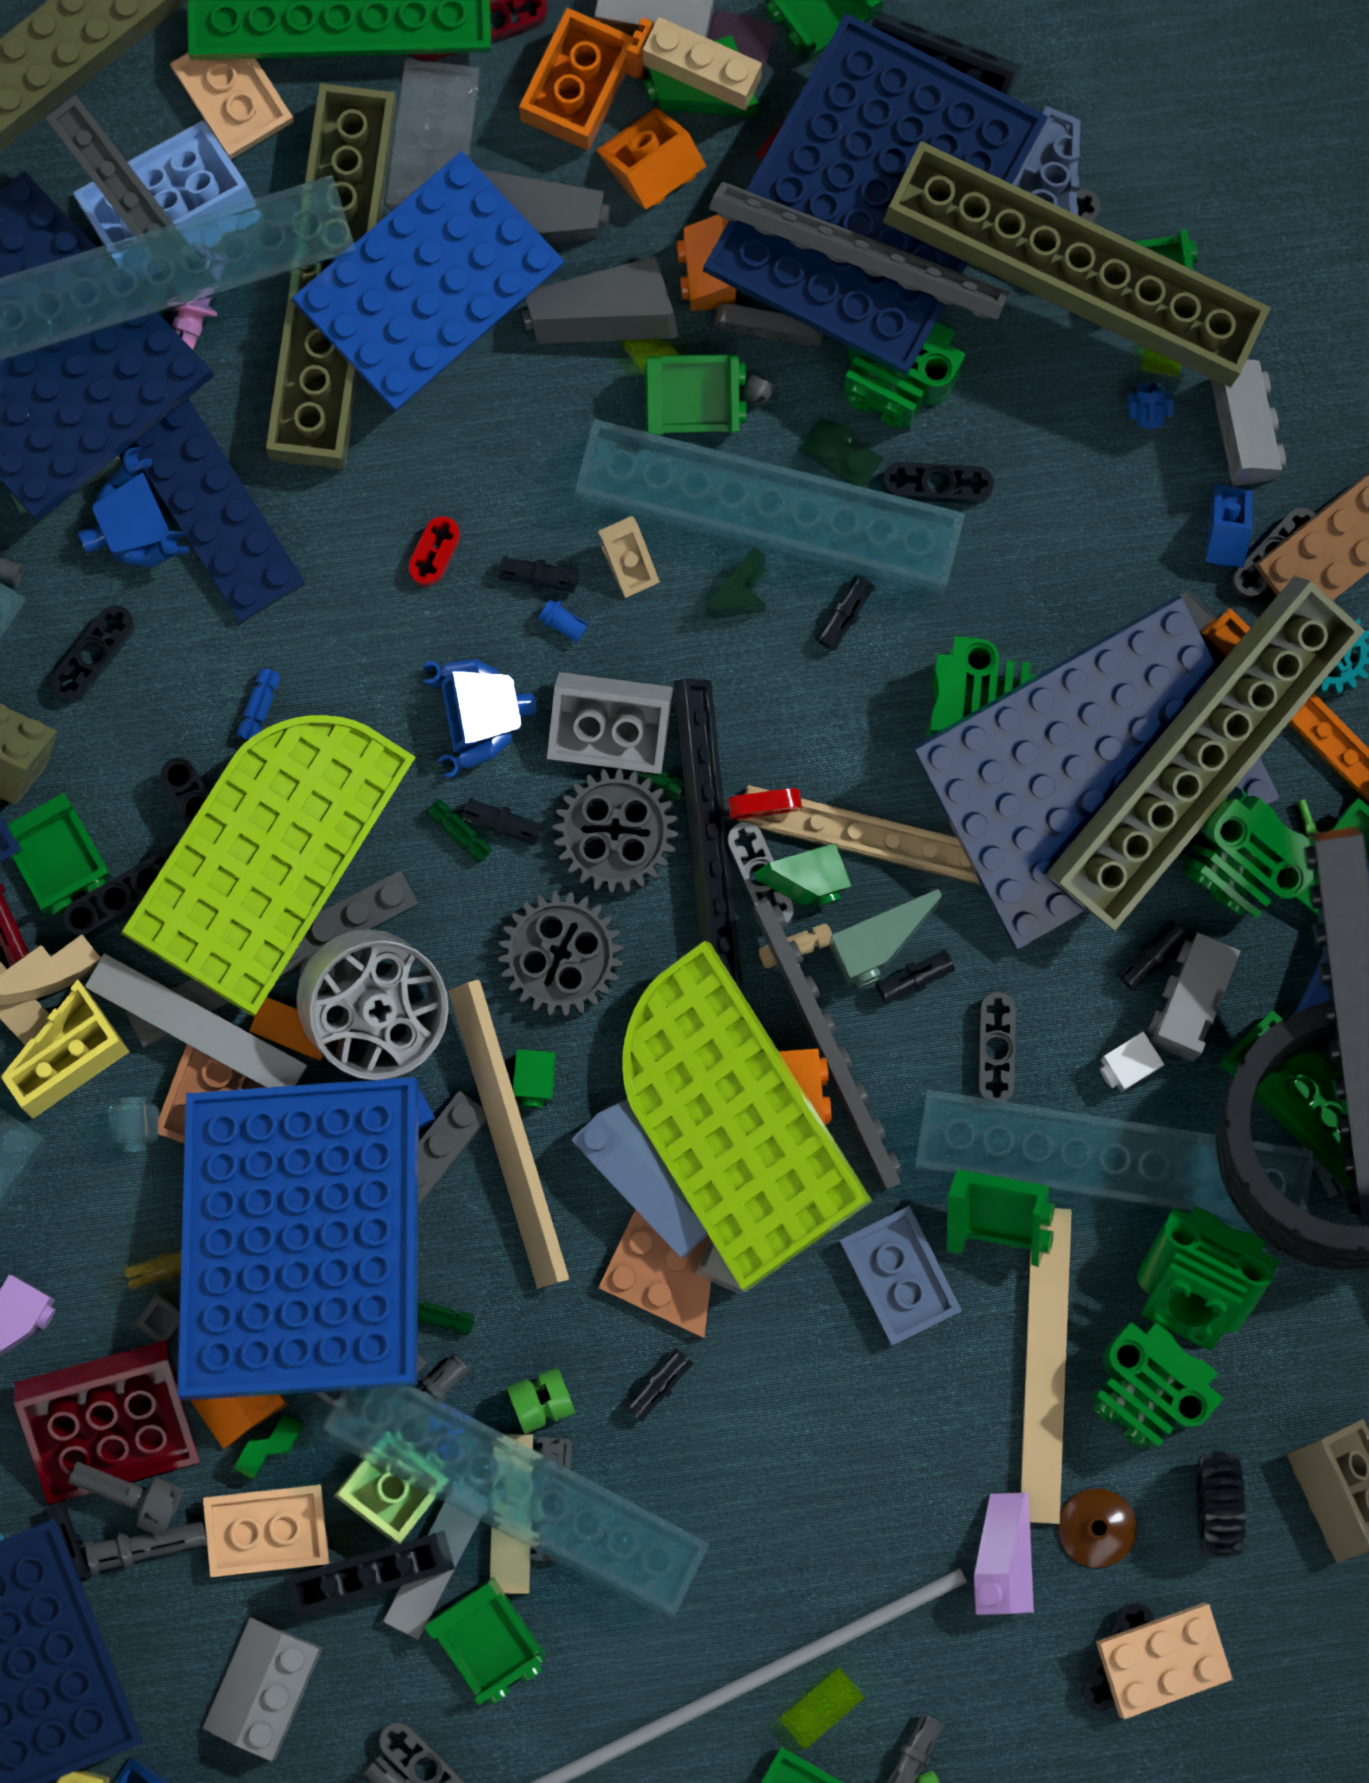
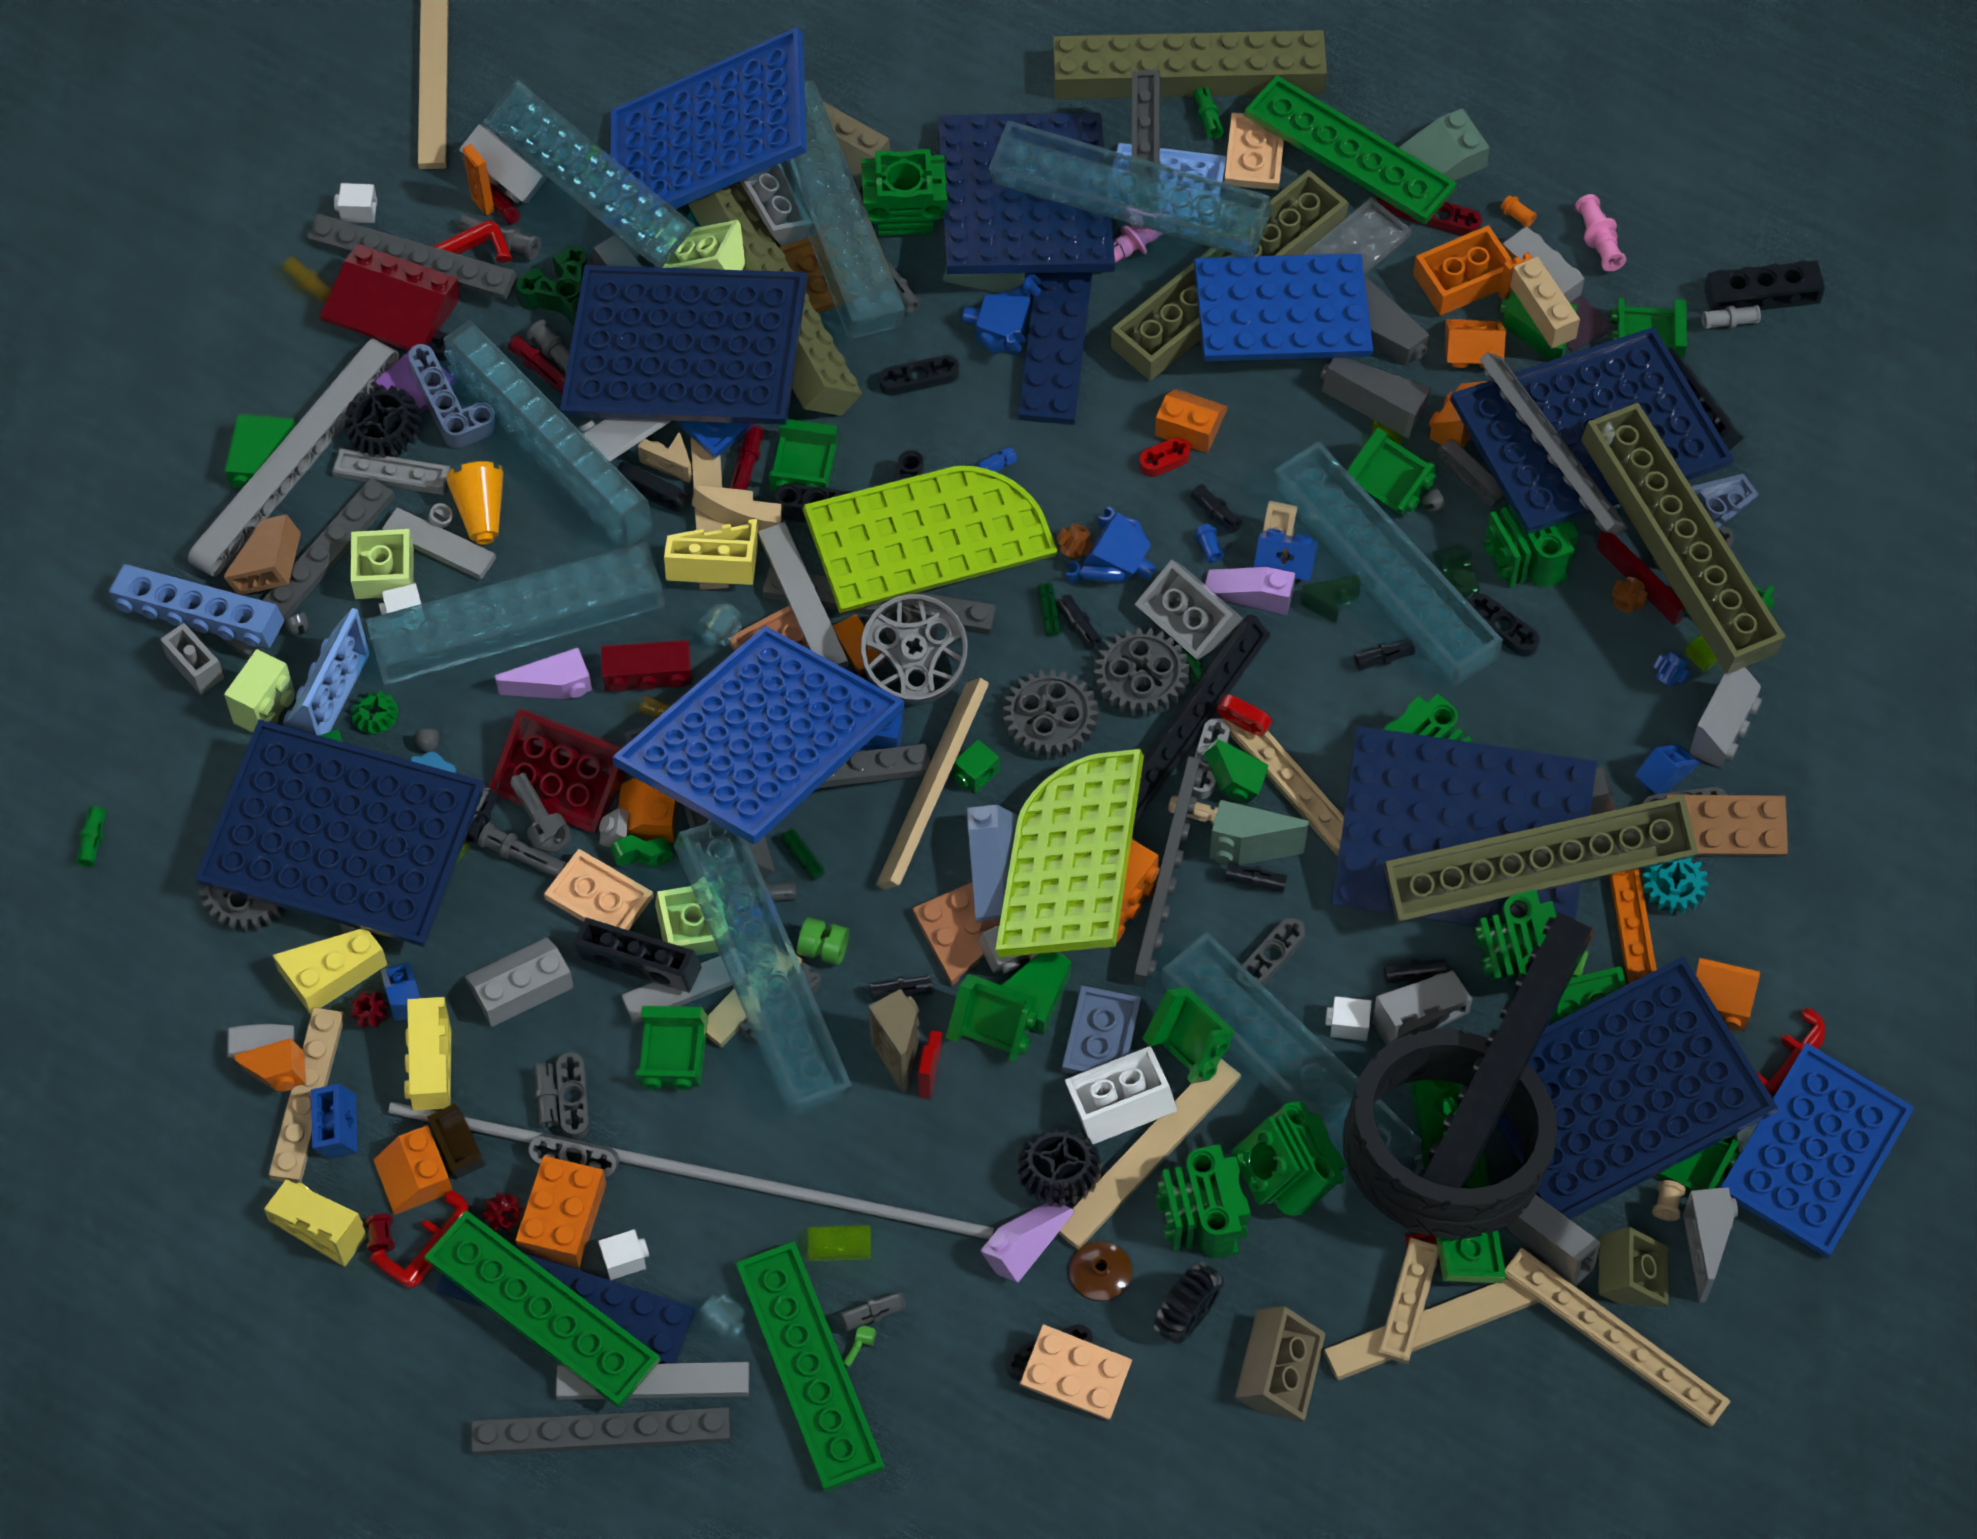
camera: 40 degrees right, 20 degrees down
(95, 1233) = (646, 665): none -> dark red brick
(142, 81) = (1208, 113): none -> green pin
(218, 1444) = (613, 827): none -> light grey plate
(424, 731) = (1074, 541): none -> dark orange gear
(425, 483) = (1189, 418): none -> orange slope
(649, 642) = (1253, 587): none -> lavender slope
(659, 579) = (1301, 551): none -> blue brick
(714, 1456) = (896, 1035): none -> dark tan slope
(759, 1448) = (929, 1064): none -> red tile
(785, 1348) = (993, 1016): none -> green panel
(799, 1295) = (1044, 980): none -> green slope
(976, 1332) = (1121, 1095): none -> white slope
(993, 1449) = (1072, 1179): none -> black gear
(1042, 349) = (1629, 595): none -> dark orange gear
(1050, 320) = (1631, 566): none -> dark red tile

